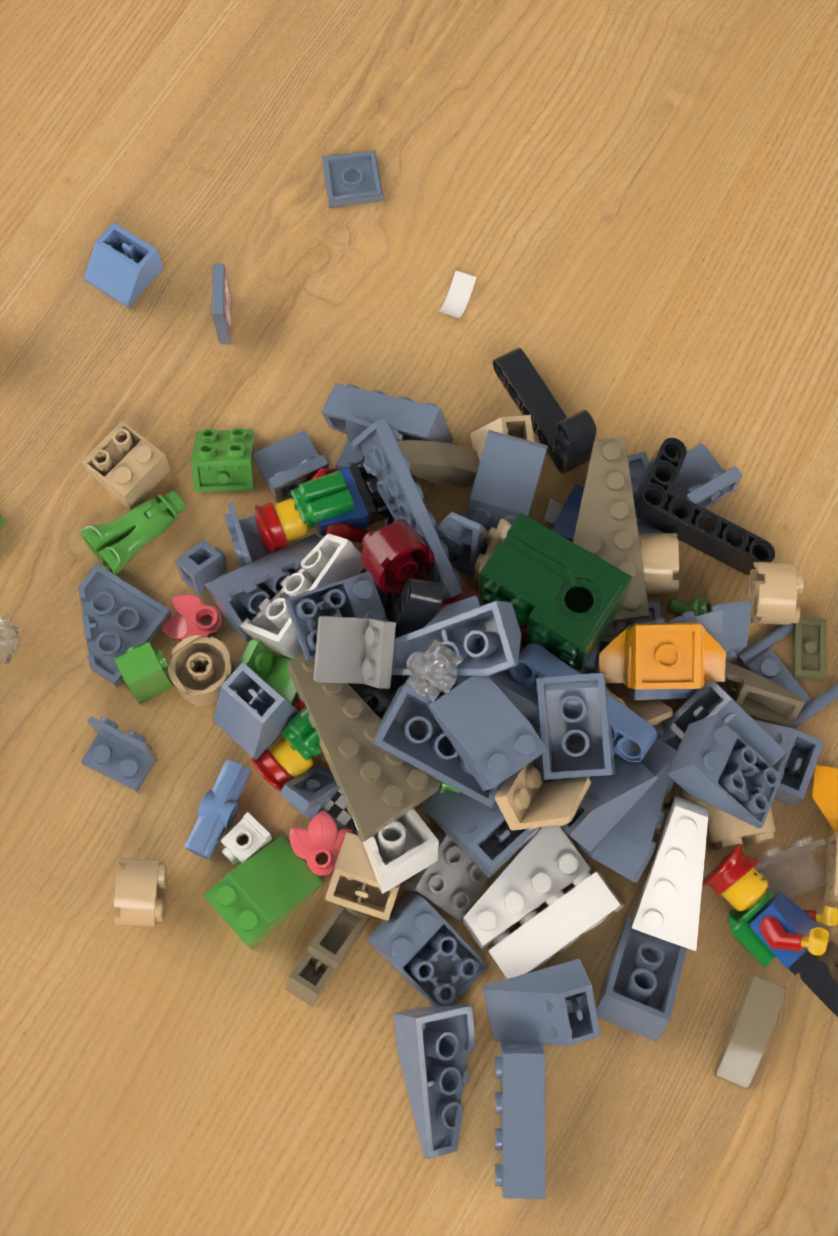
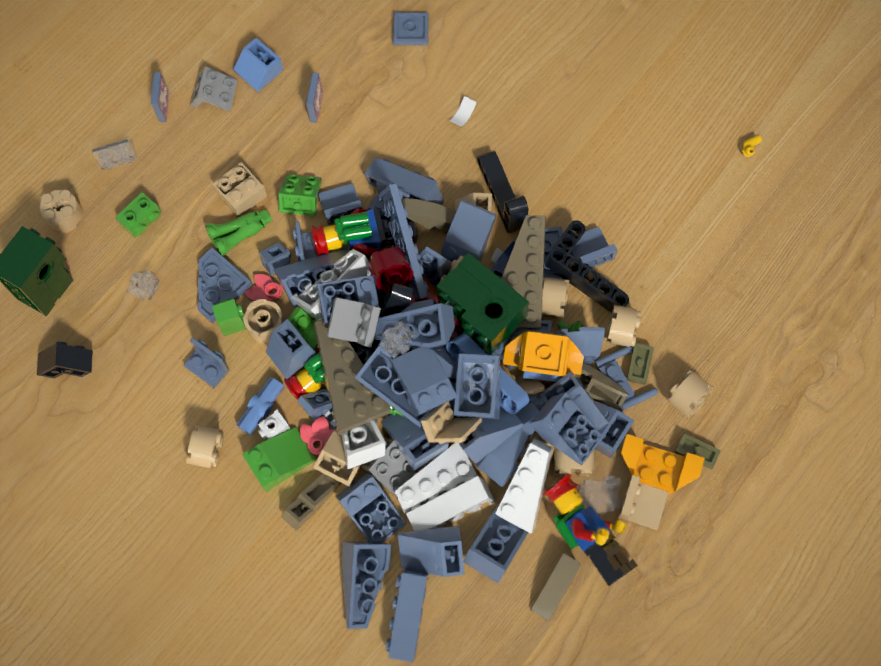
camera: 10 degrees right, 0 degrees up
(58, 312) = (214, 89): none -> light grey bracket

